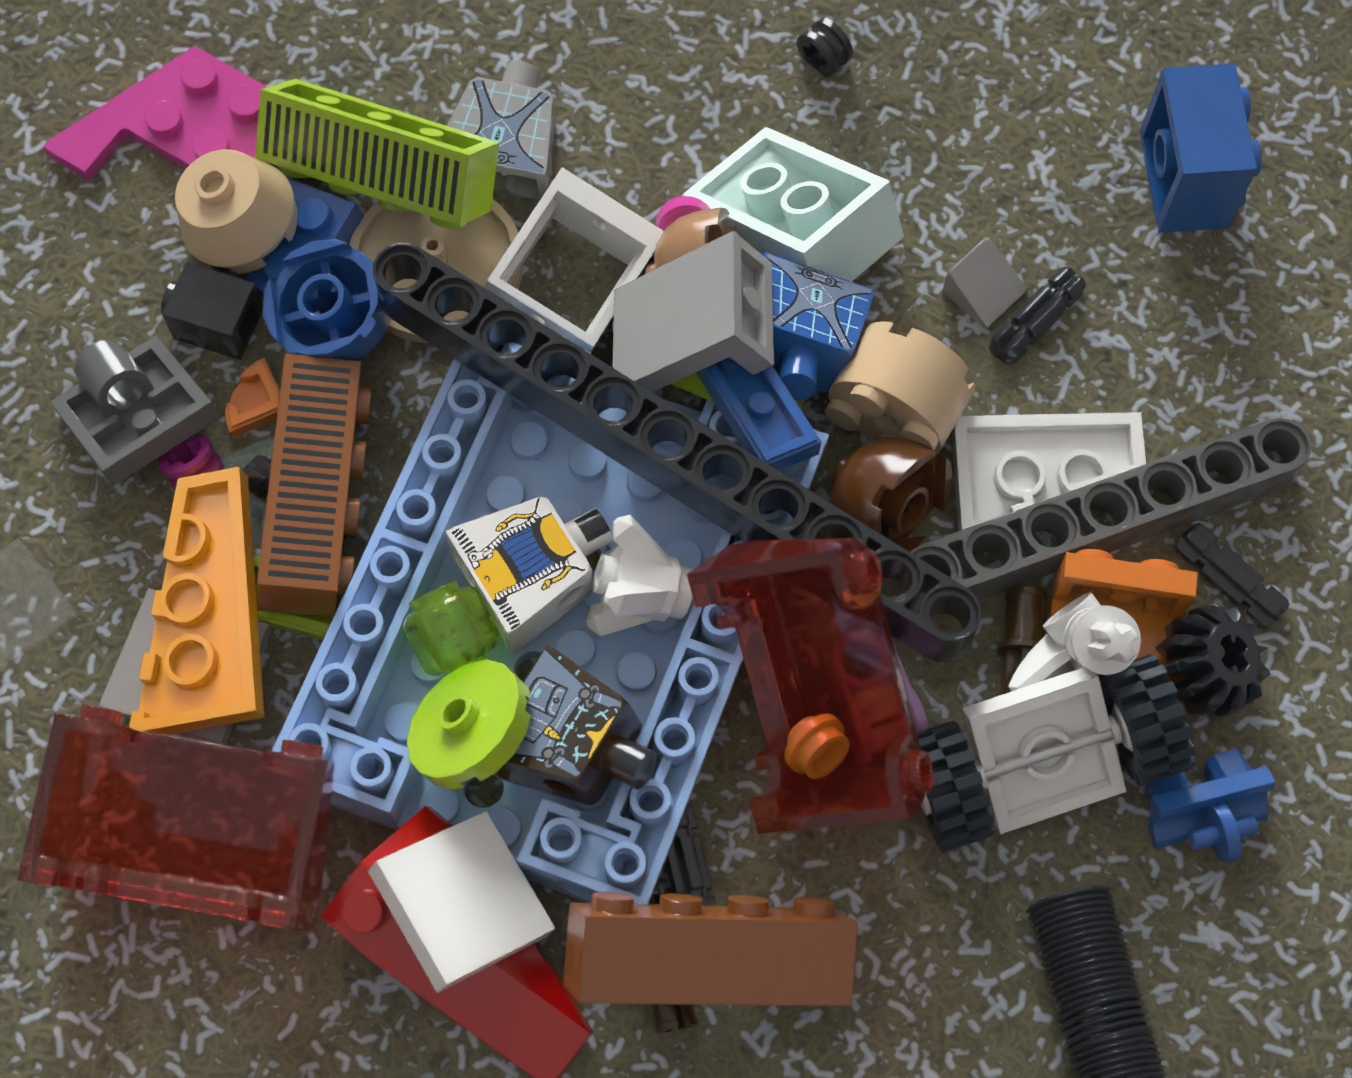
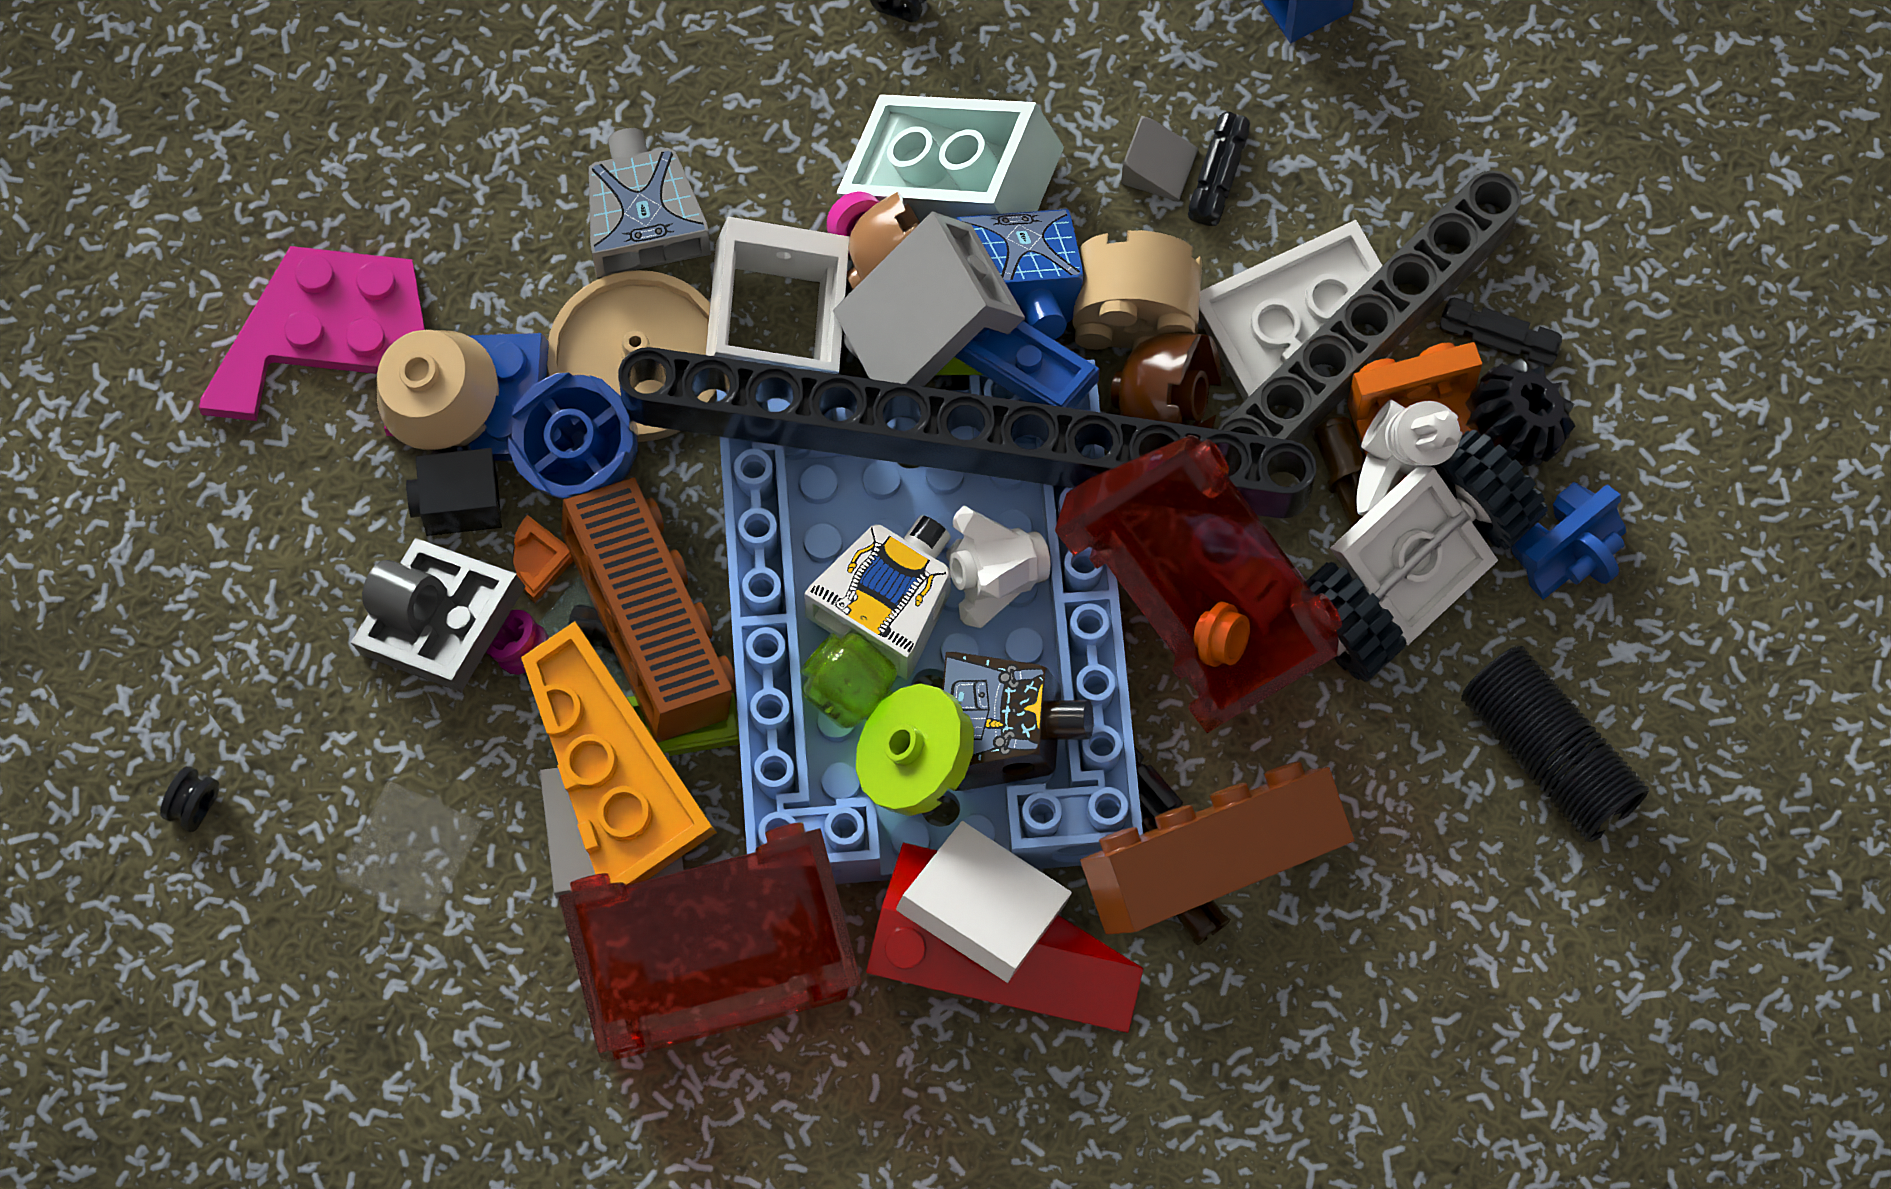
camera: 25 degrees left, 0 degrees up
(376, 152) = (538, 275): lime brick -> none

